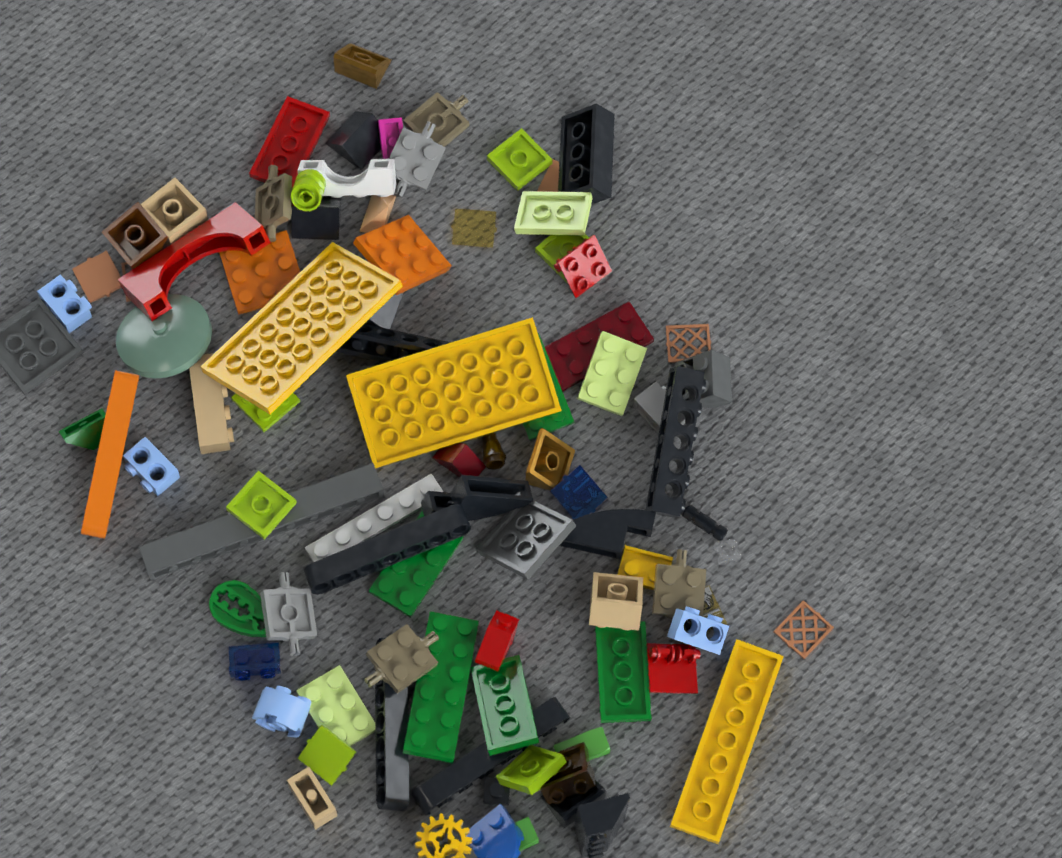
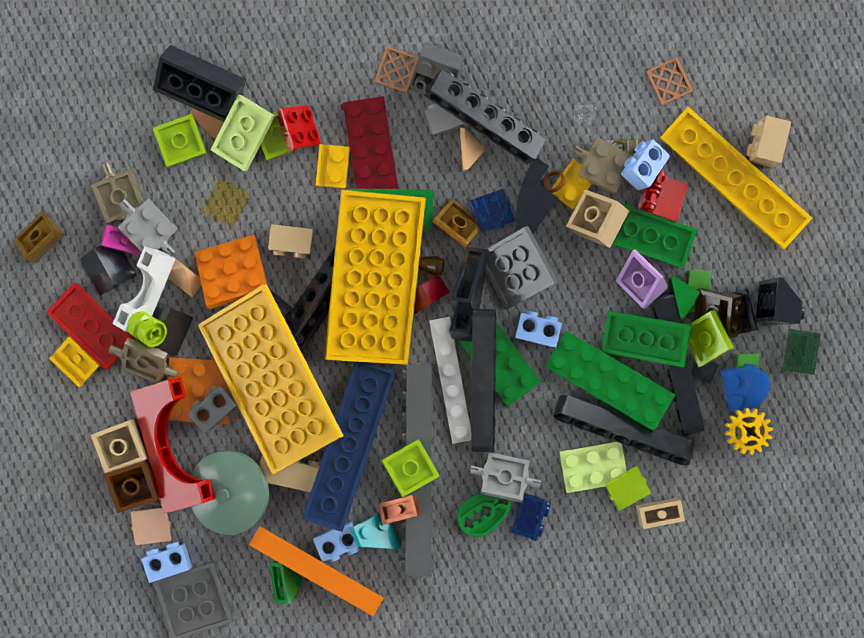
camera: 65 degrees left, 20 degrees up
(175, 501) = (374, 535): none -> teal wing
(210, 511) = (399, 509): none -> plate
(244, 291) = (215, 412): none -> dark grey brick
(245, 142) = (74, 361): none -> yellow plate
(261, 435) = (347, 456): none -> dark blue plate
(281, 711) = (584, 512): light blue brick -> none
(401, 658) = (581, 404): dark tan plate -> none
(460, 302) = (290, 240): none -> tan brick
(462, 590) = (537, 334): none -> light blue brick
(497, 640) = (592, 324): red slope -> none
(557, 316) = (332, 166): none -> yellow plate
(568, 676) = (641, 280): none -> lavender slope
(568, 731) = (683, 294): none -> green slope
(612, 373) = (401, 142): yellowish green plate -> none
(634, 446) = (470, 149): none -> light nougat slope
(638, 551) = (560, 185): none -> dark orange piece
(705, 522) = (554, 120): black axle -> none
(782, 754) = (769, 141): none -> tan brick

